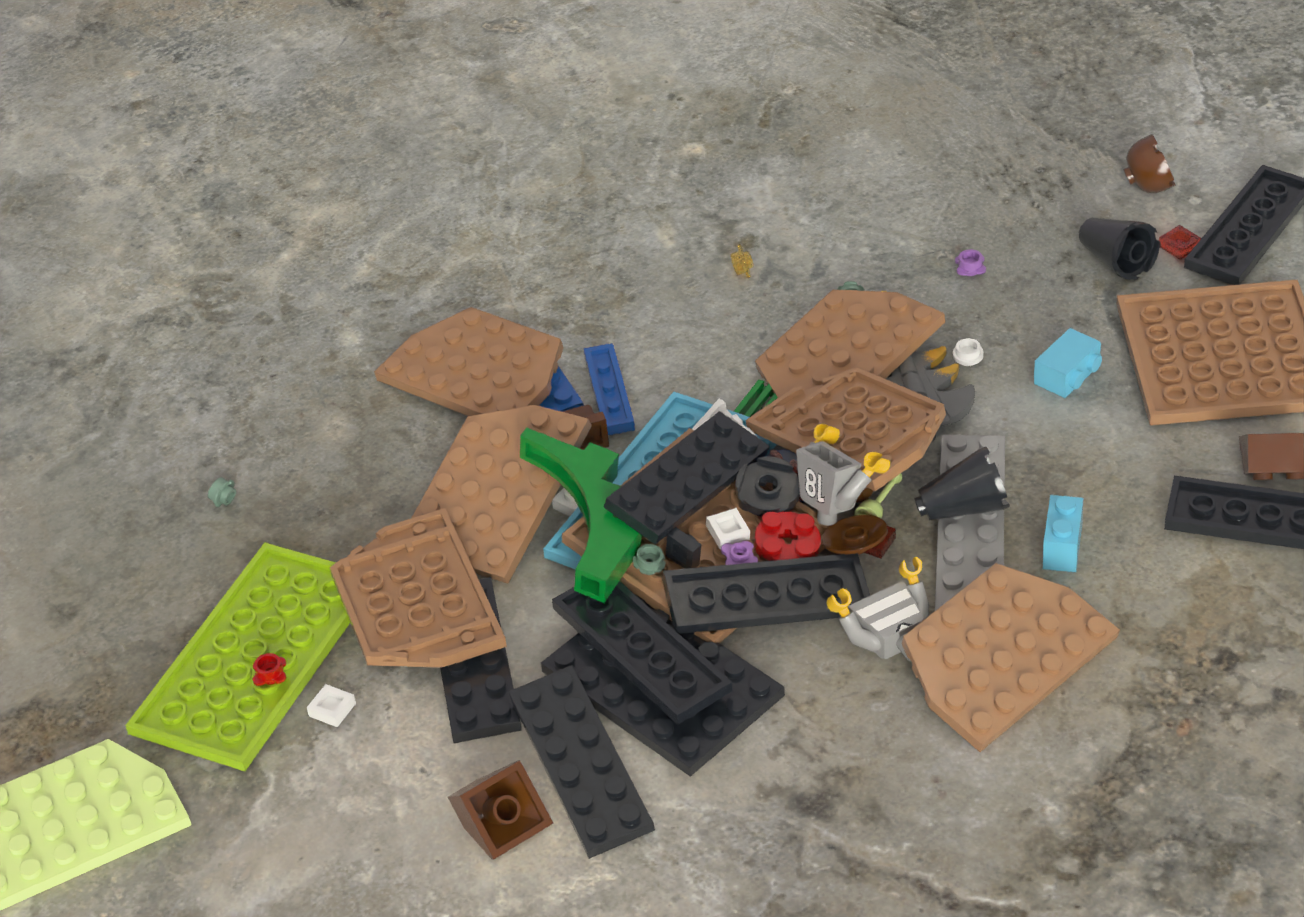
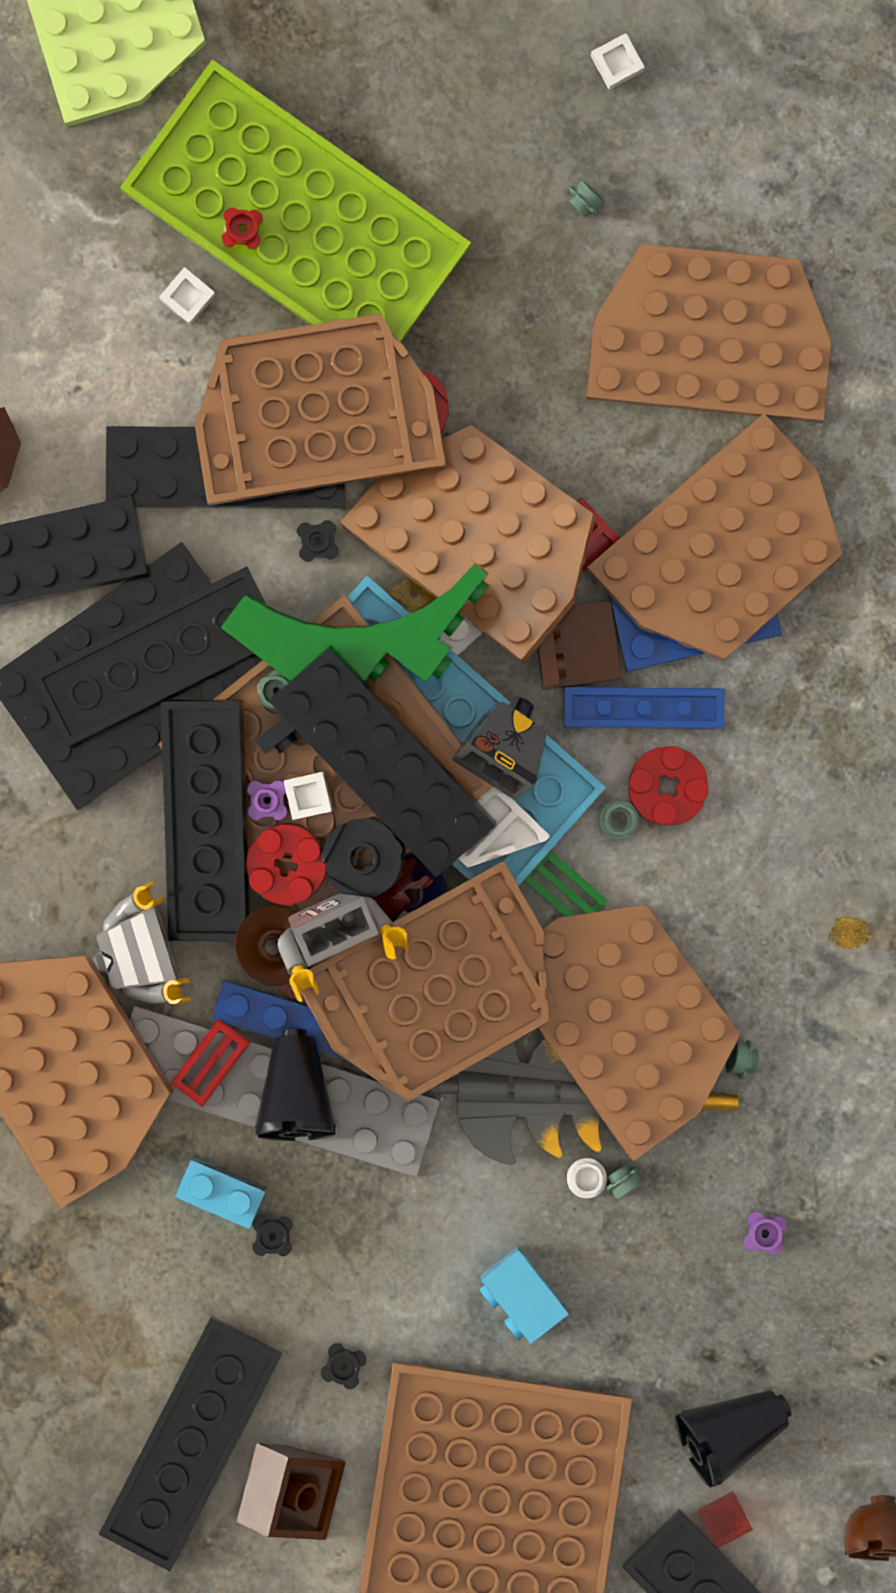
camera: 90 degrees right, 45 degrees up
(112, 495) = (617, 61): none -> white plate
(319, 413) = (712, 336): none -> medium nougat plate
(522, 589) = (309, 548): none -> black plate
(550, 525) = (403, 593): none -> clear yellow plate
(658, 426) = (505, 748): none -> dark grey torso
(663, 356) = (690, 790): none -> red plate
(696, 386) = (630, 813): none -> sand green plate
(911, 529) = (267, 1014): none -> blue plate
(961, 330) = (624, 1181): none -> sand green plate
(961, 559) = (231, 1034): none -> red tile
(1090, 504) = (264, 1244): none -> black plate
(1167, 447) = (332, 1370): none -> black plate

